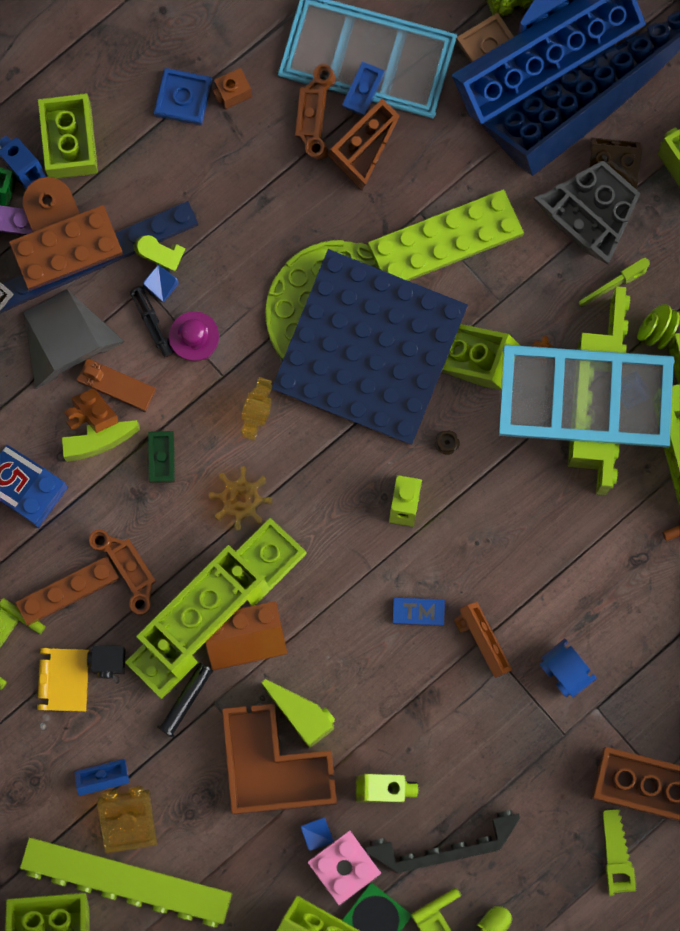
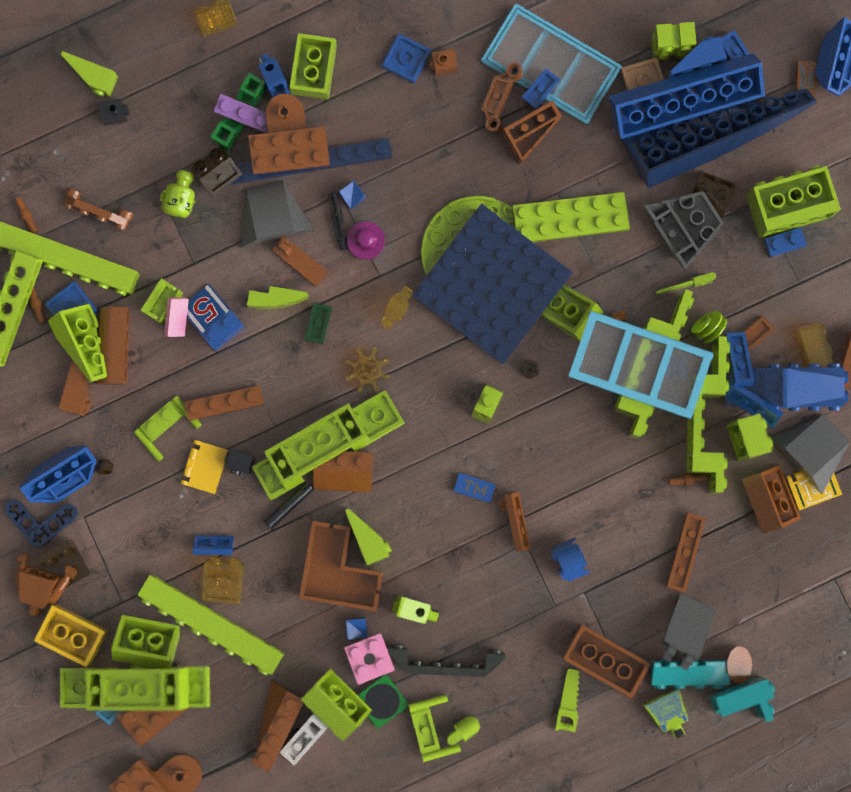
camera: 15 degrees right, 5 degrees up
(91, 409) = (276, 275): dark orange plate -> none
(129, 565) = (274, 398): dark orange plate -> none
(151, 250) = (353, 170): lime leg -> none

